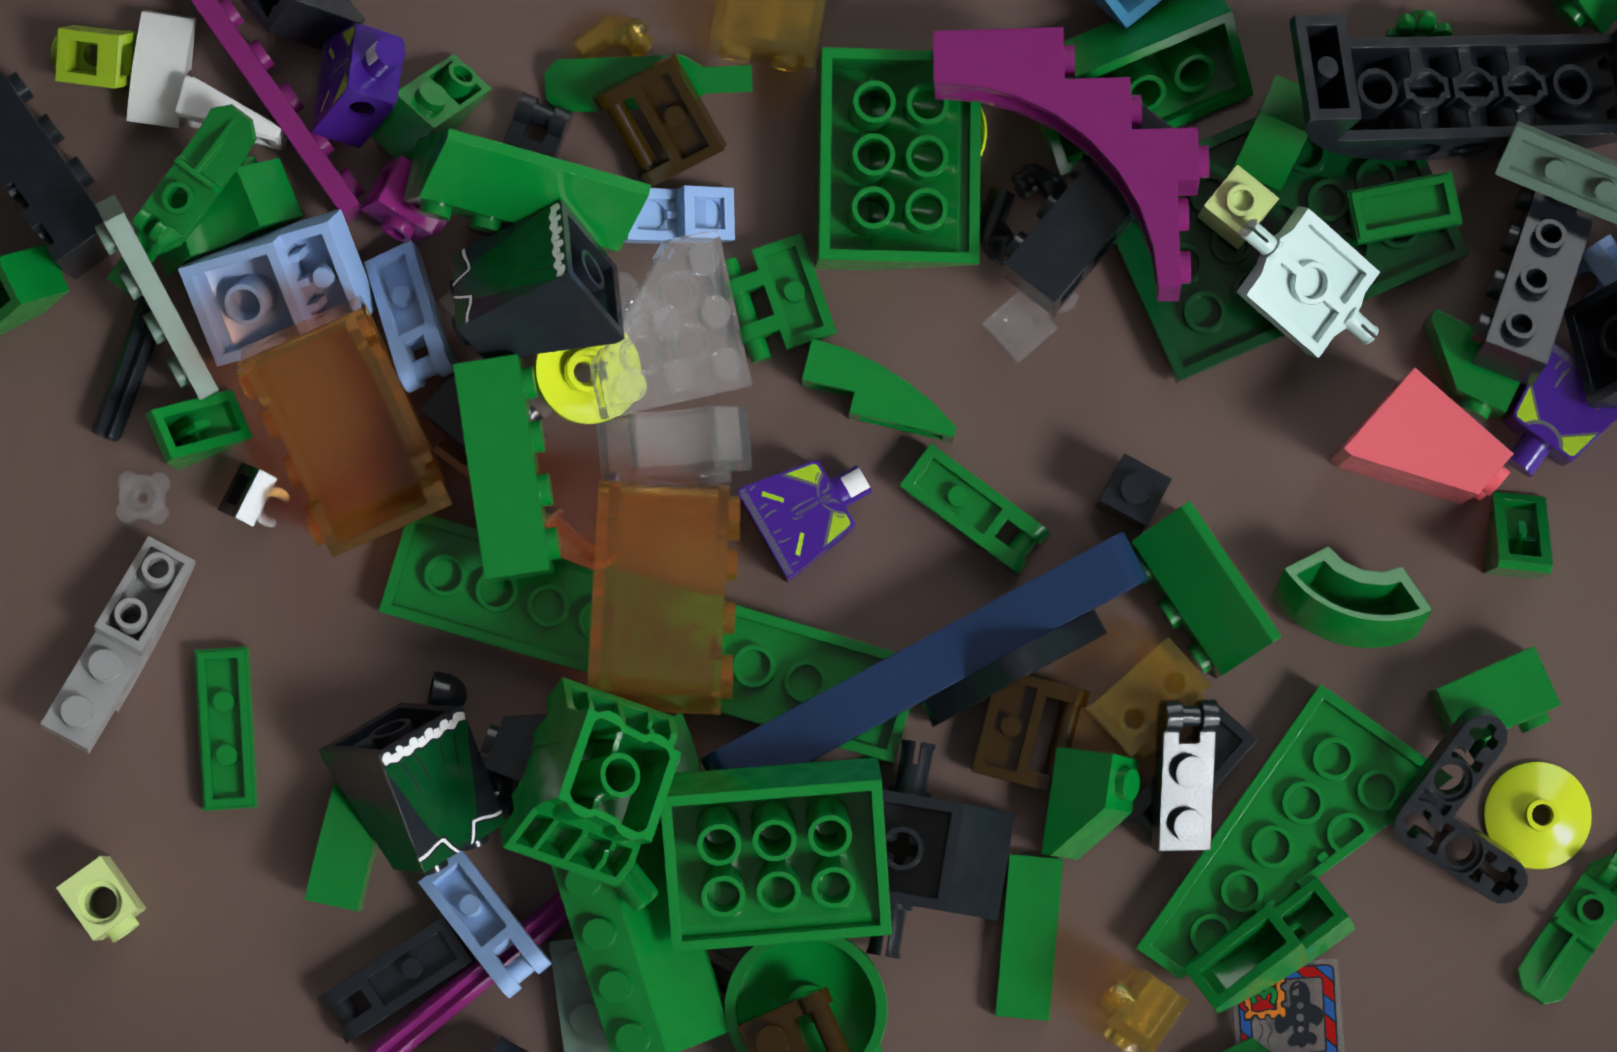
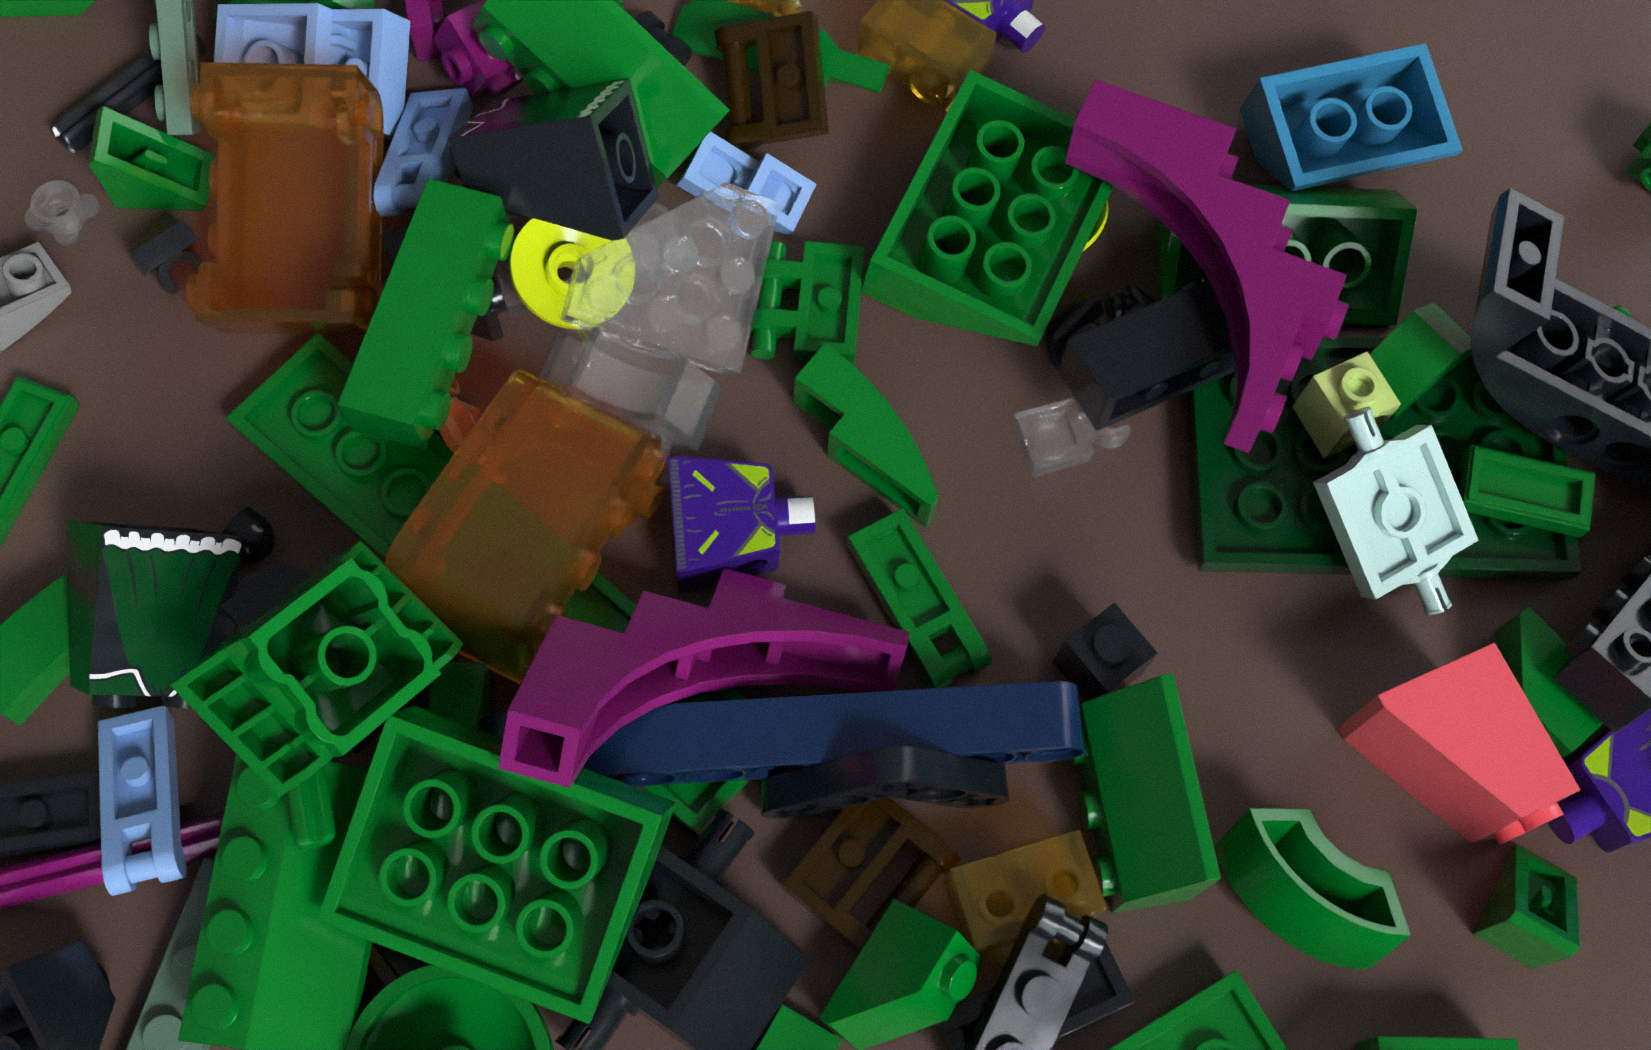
camera: 20 degrees right, 15 degrees down
(821, 641) = (601, 679): none -> magenta arch

